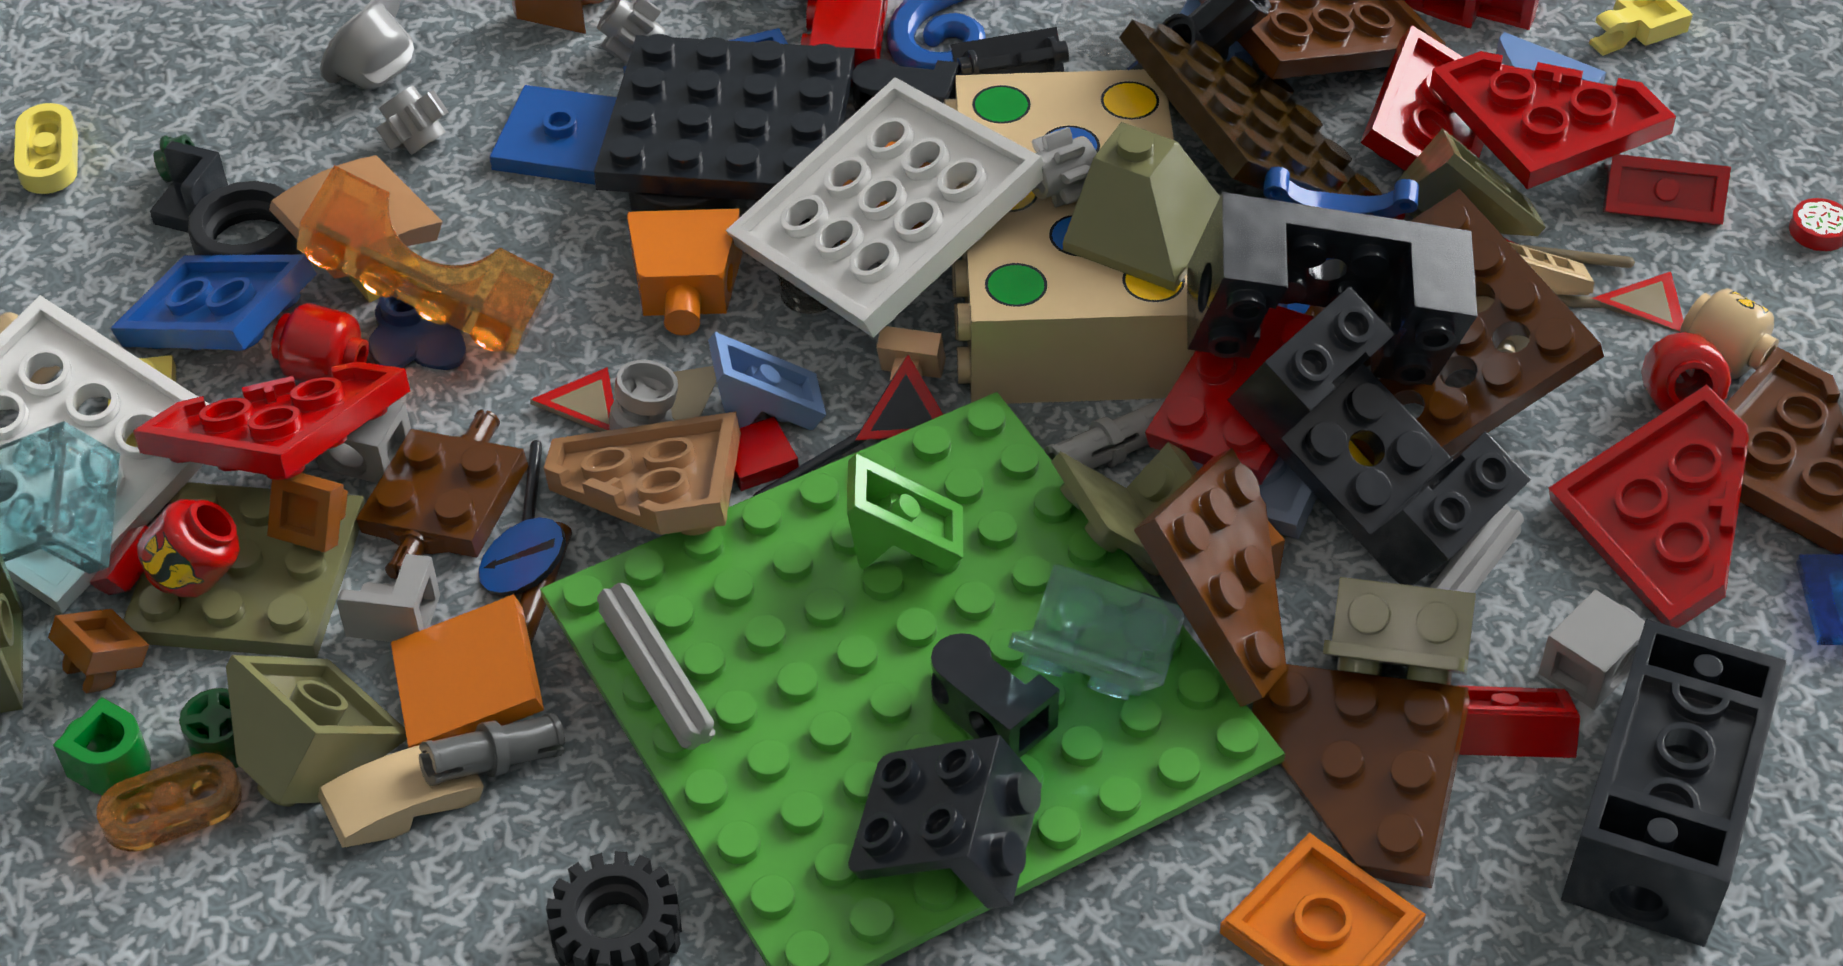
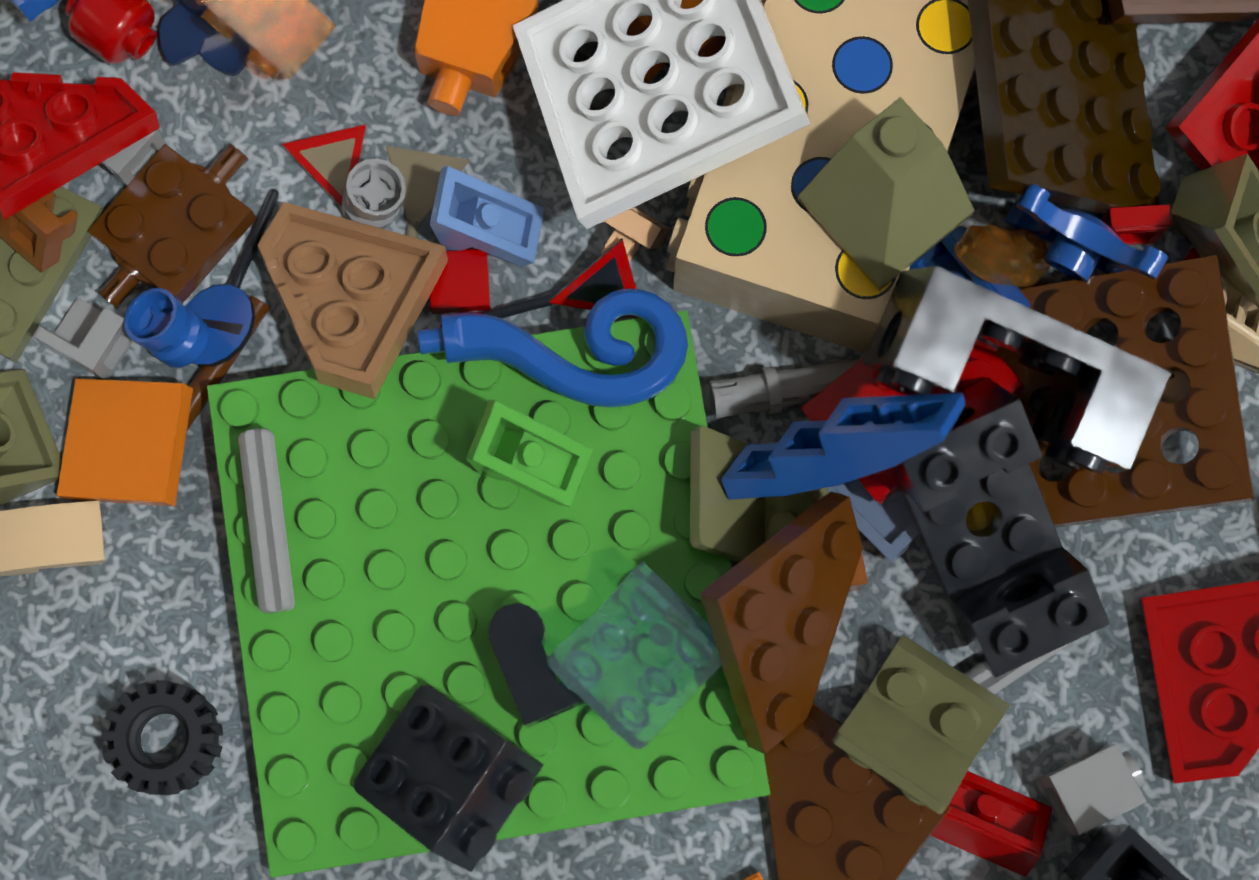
camera: 20 degrees right, 30 degrees up
(472, 556) = (166, 328): none -> blue wheel
(491, 749) = (118, 532): dark grey pin -> none
(826, 449) = (491, 338): none -> blue plant
(1065, 165) = (831, 113): light grey gear -> none
(1216, 379) = (853, 443): none -> blue slope

